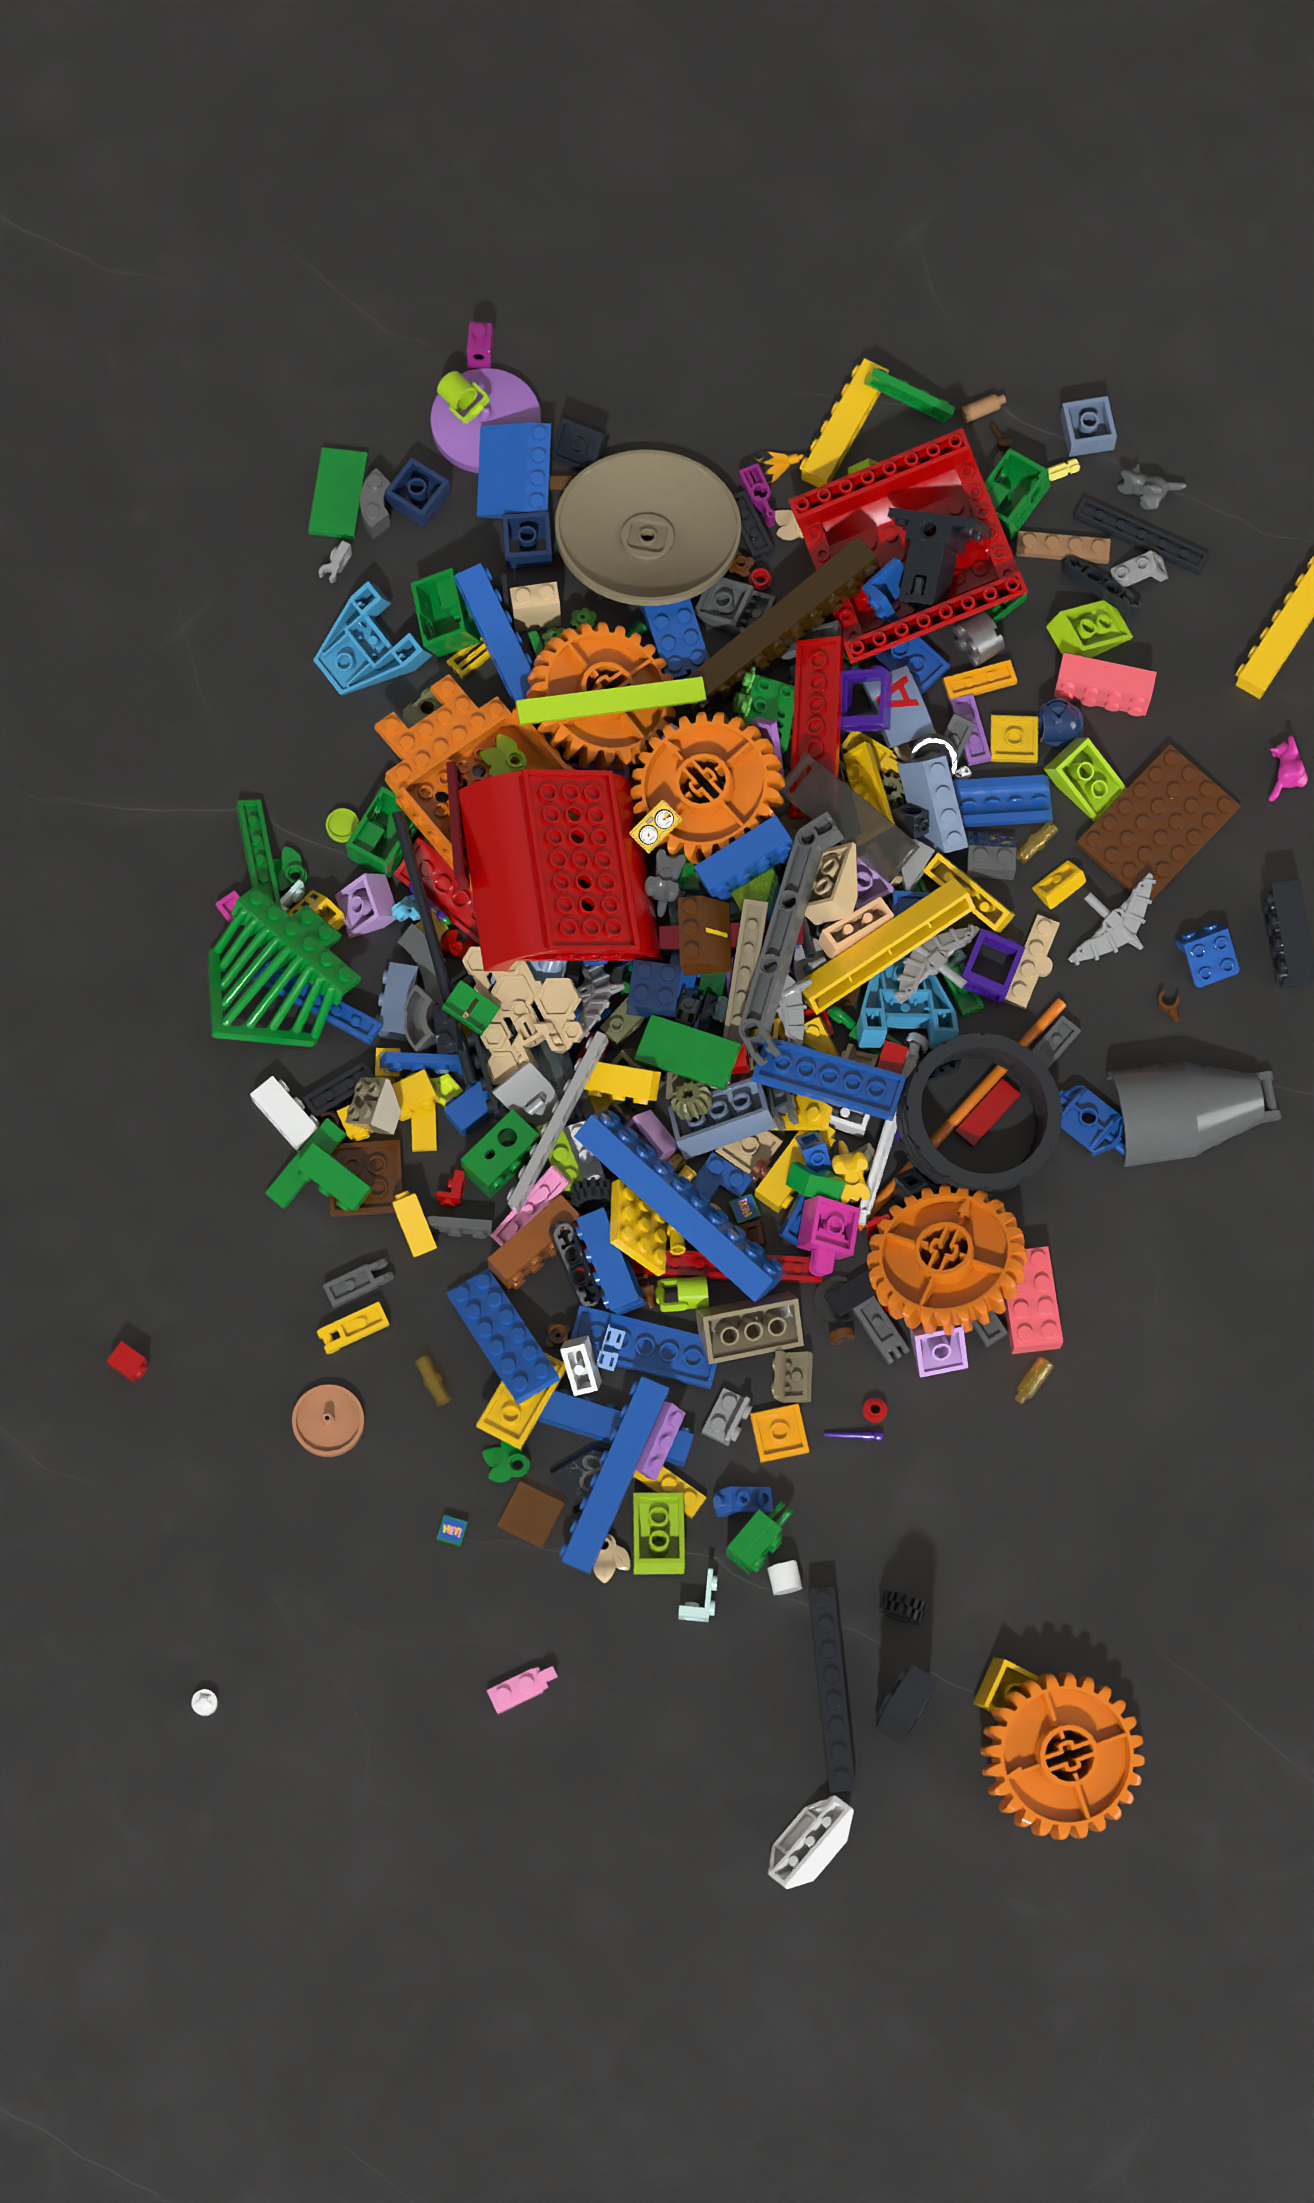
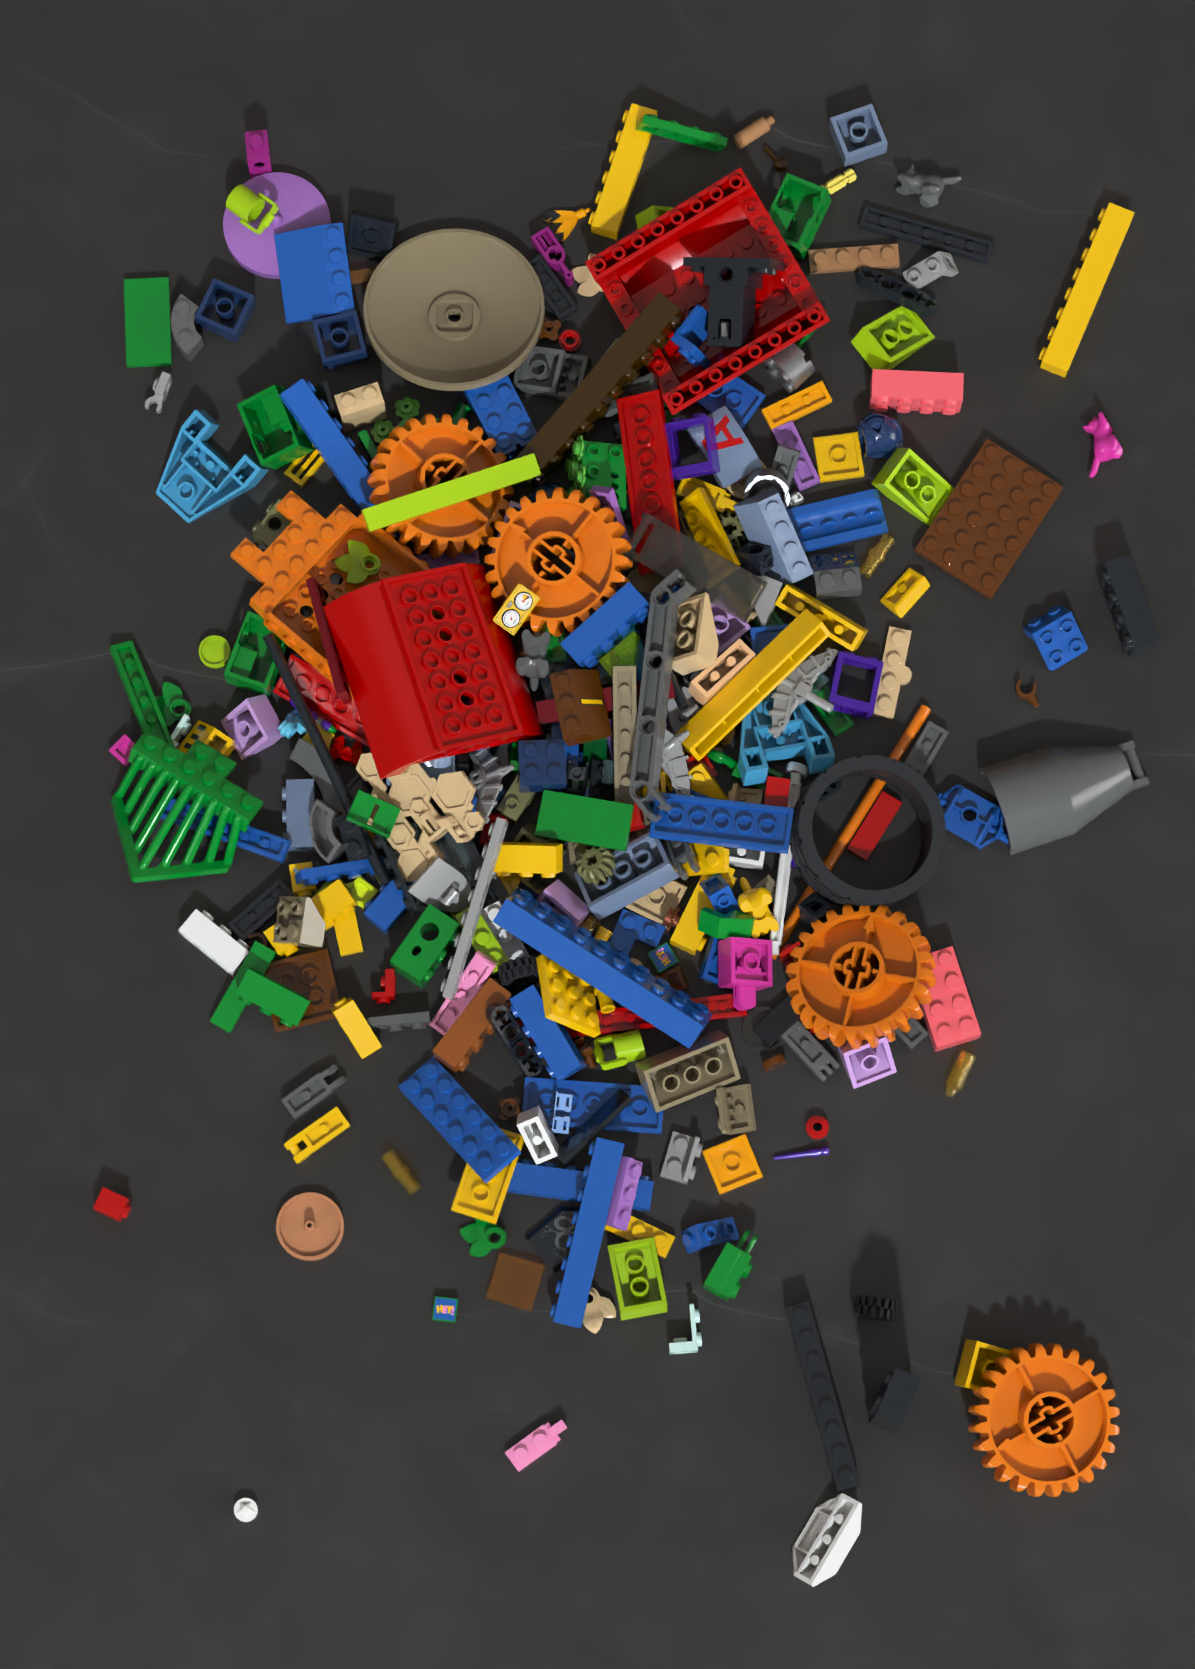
camera: 10 degrees left, 5 degrees up
(641, 1367) = (593, 1126): none -> black slope
(785, 1578) = (761, 1299): white piece -> none
(1118, 925) = (966, 624): light grey bar -> none

